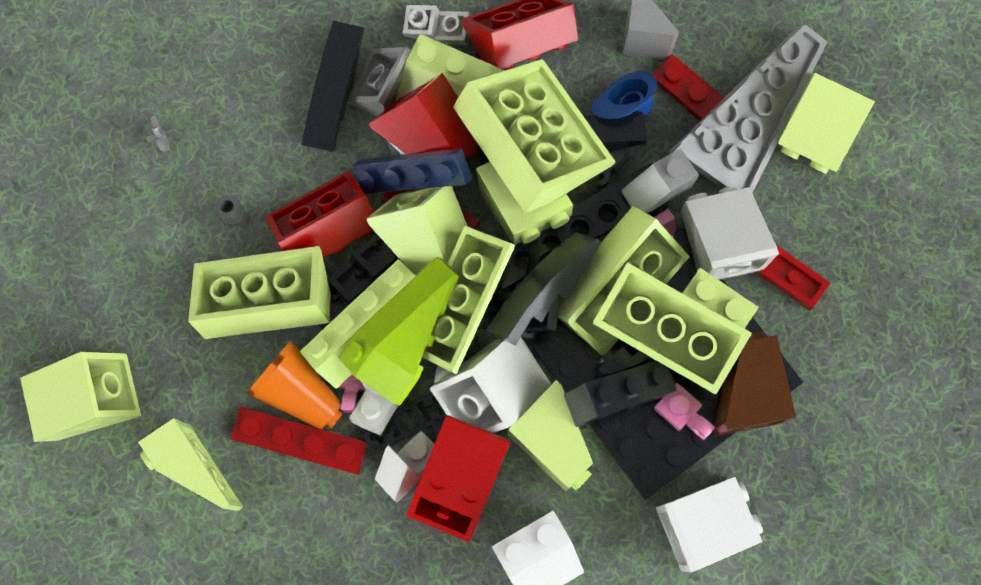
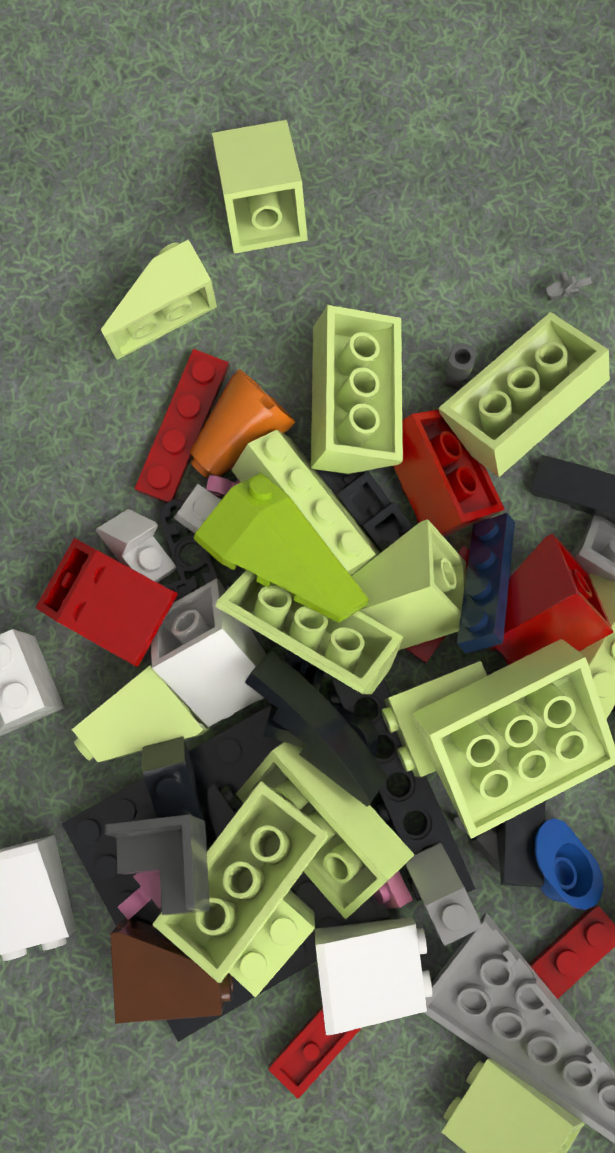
camera: 95 degrees right, 5 degrees up
(251, 159) = (526, 392): none -> yellowish green slope
(653, 386) = (175, 849): none -> dark grey panel

